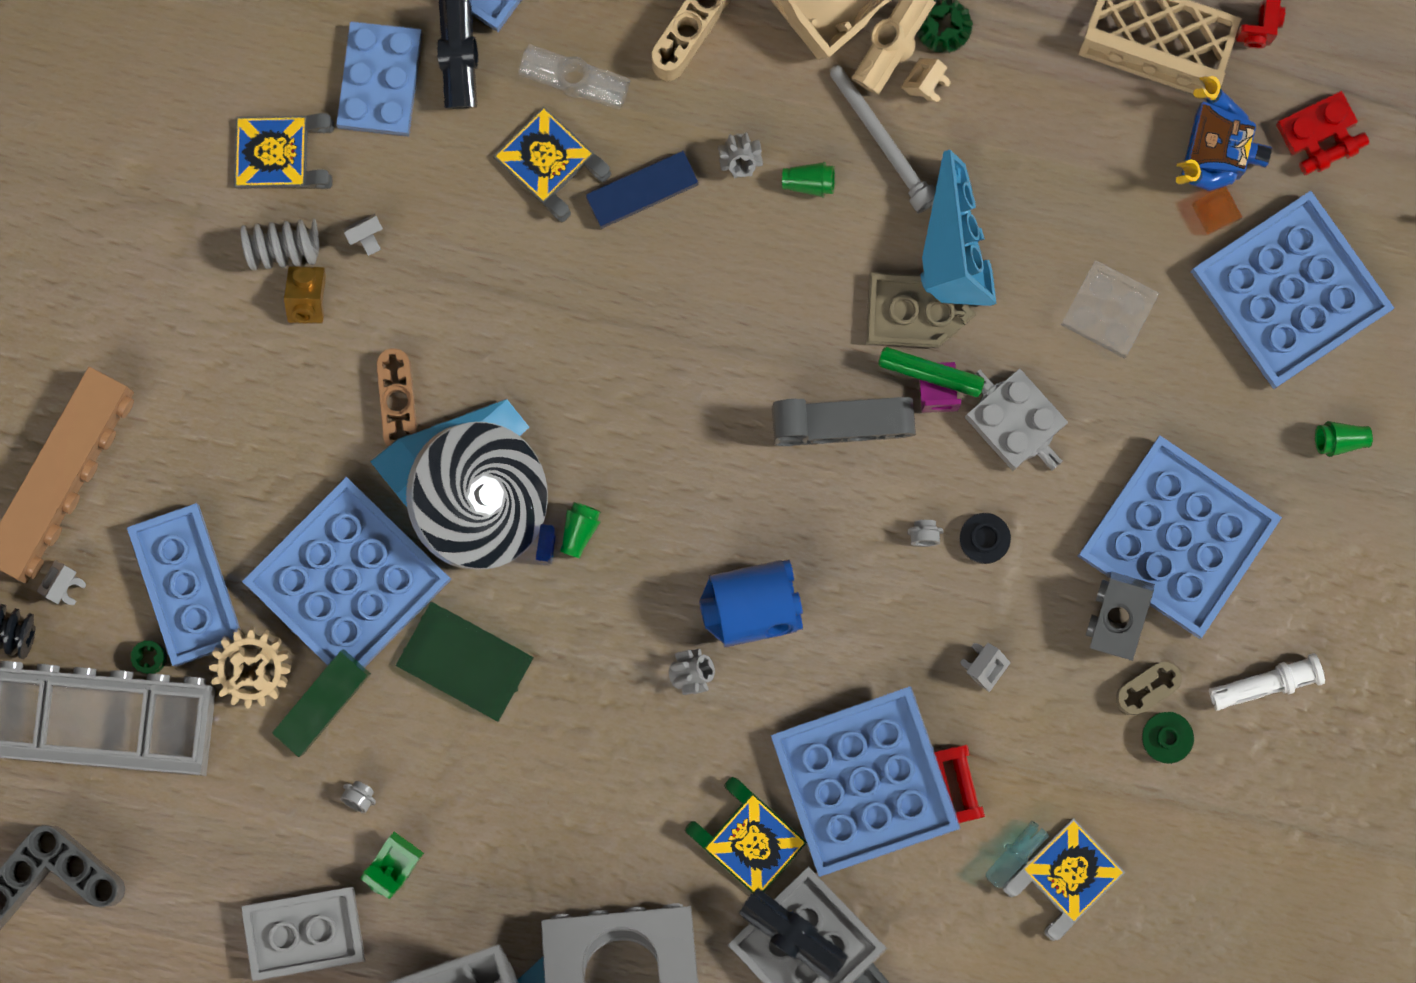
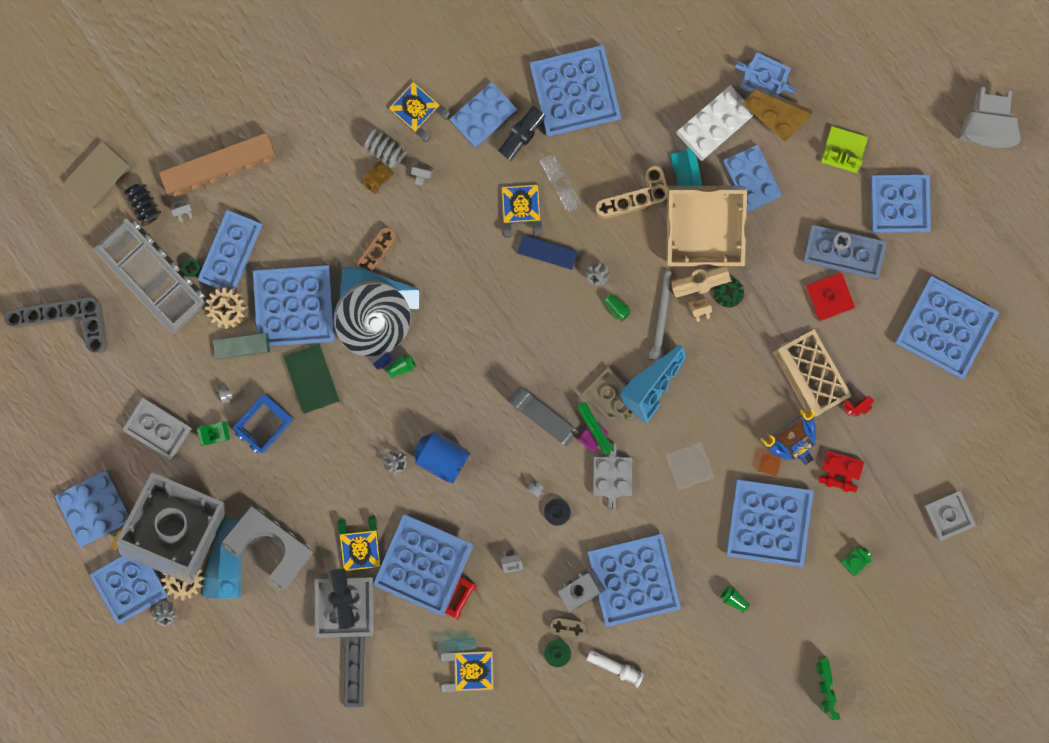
camera: 50 degrees right, 5 degrees up
(452, 748) = (273, 406): none -> blue window

